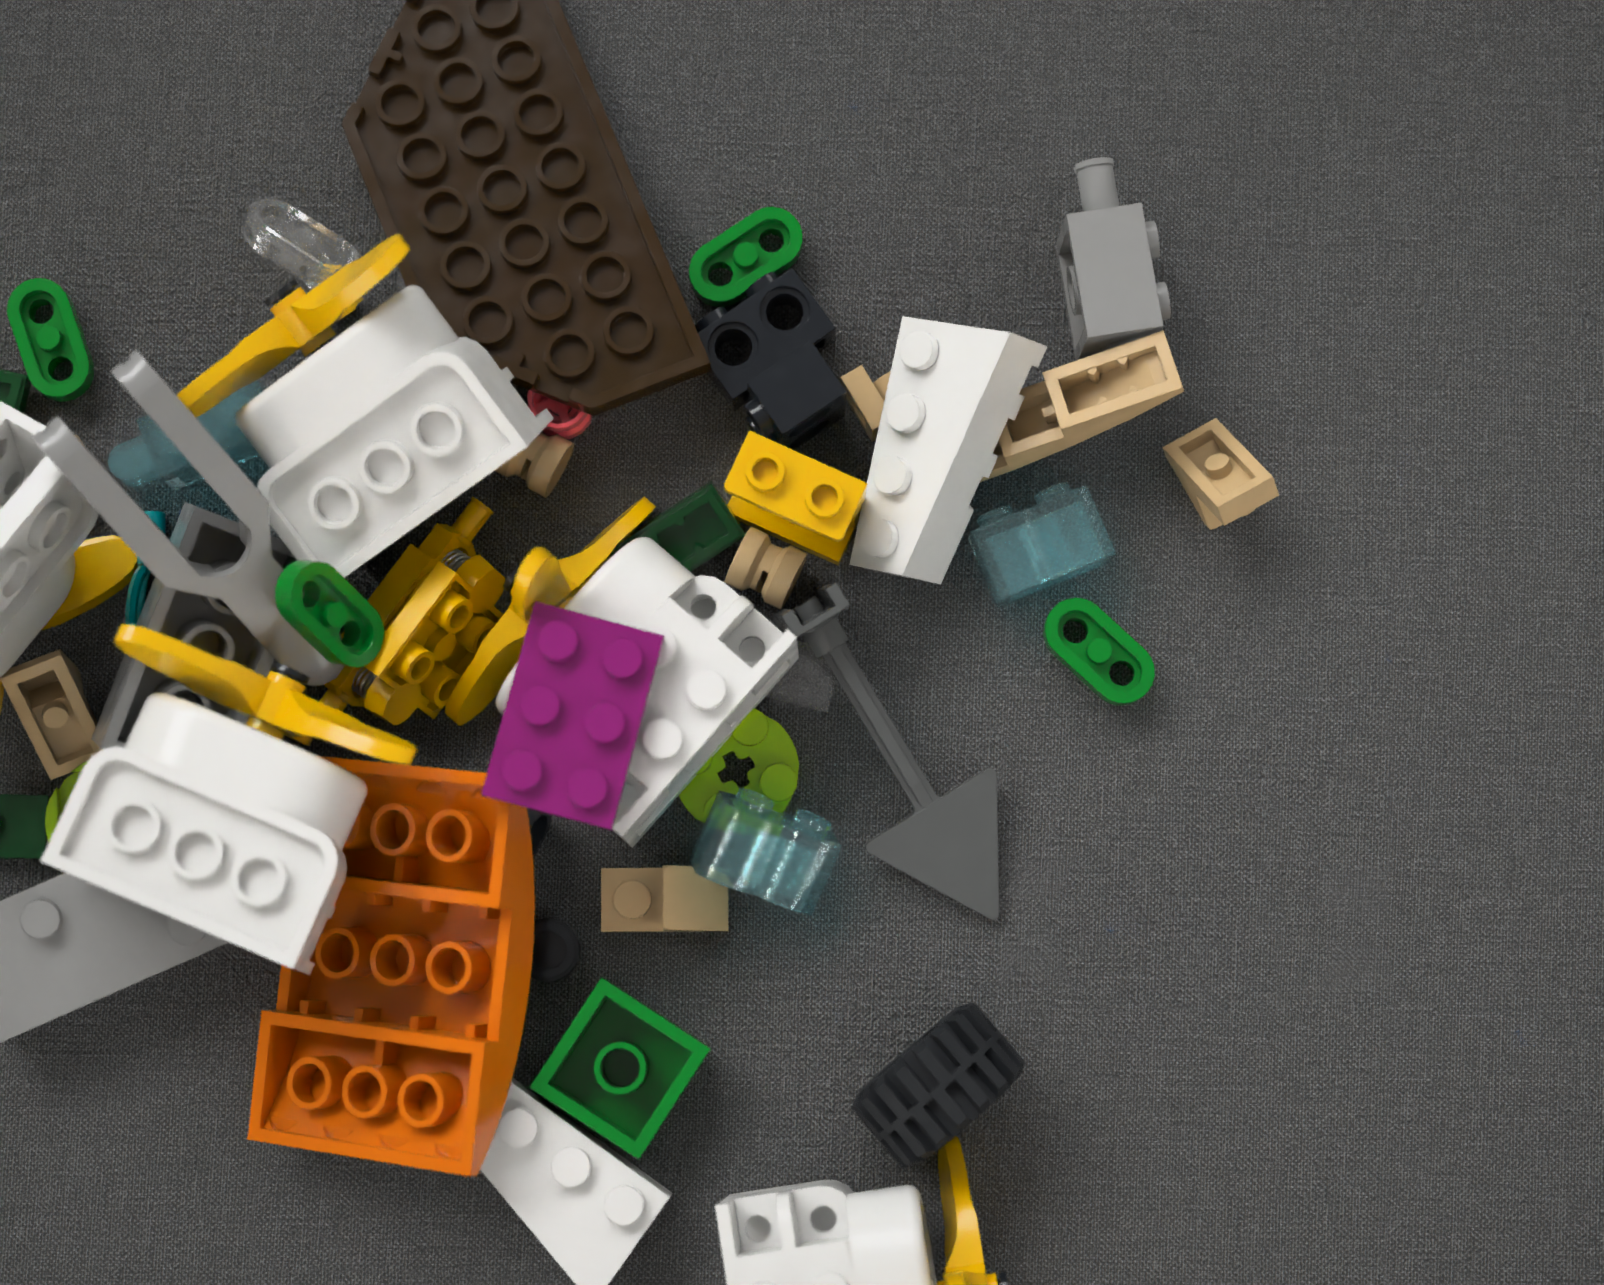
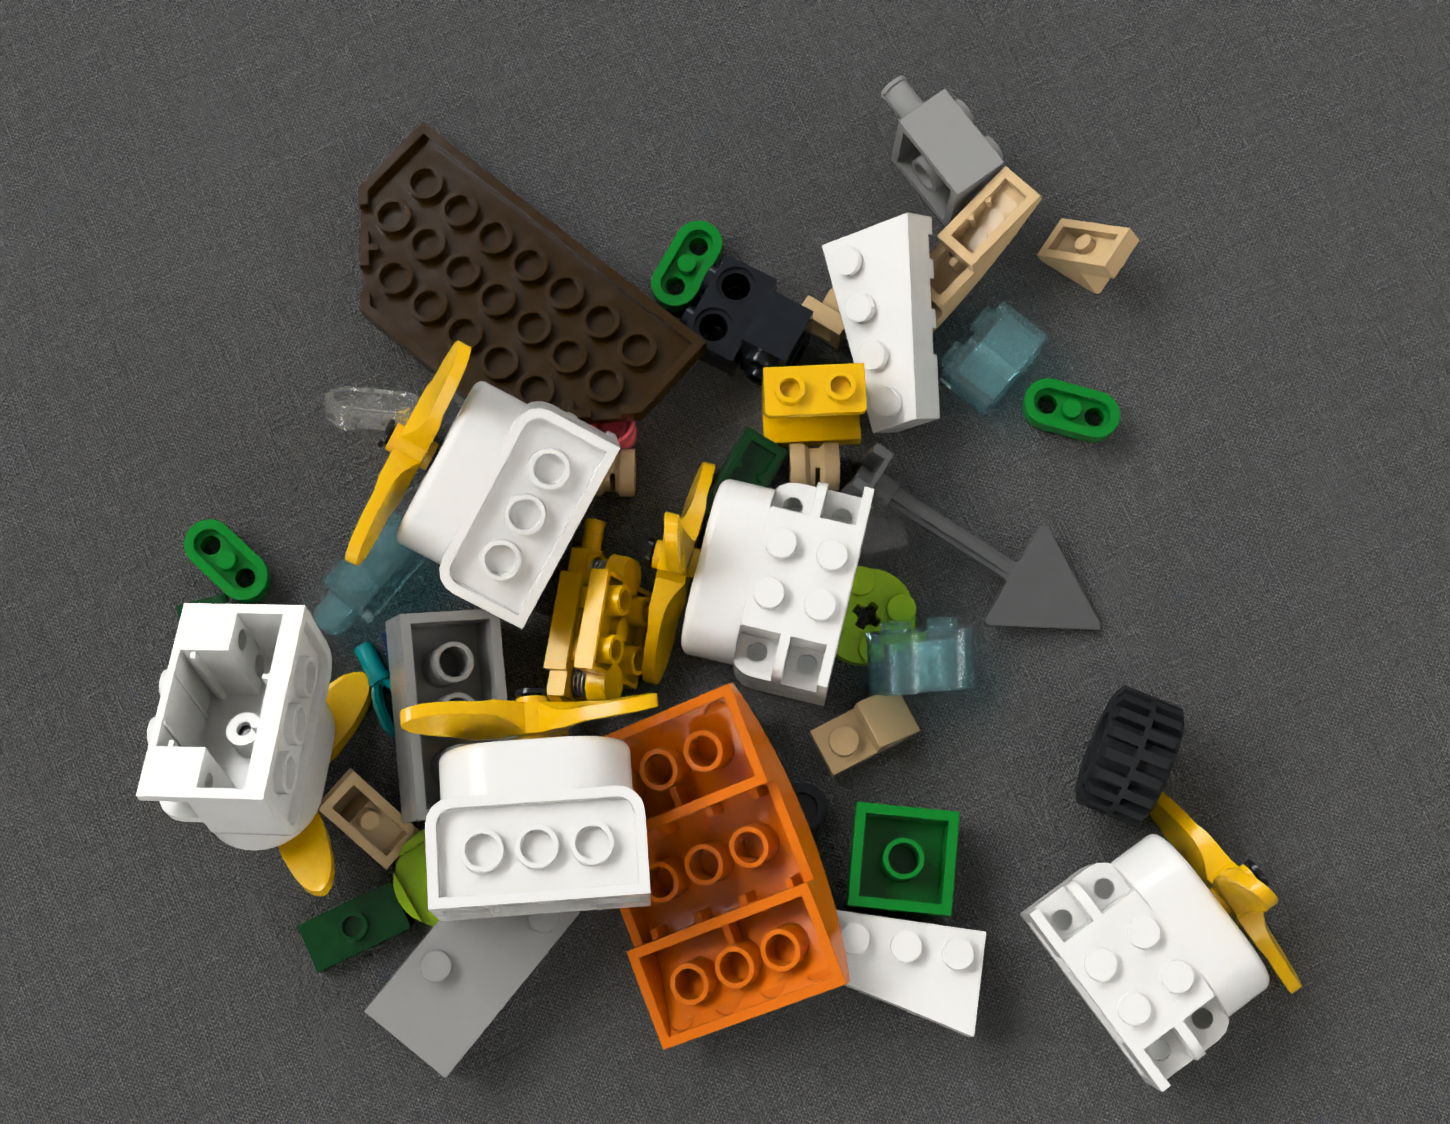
camera: 25 degrees left, 5 degrees down
(244, 587) = (475, 649): light grey piece -> none
(325, 608) = (536, 638): green plate -> none
(573, 716) = (750, 619): magenta plate -> none

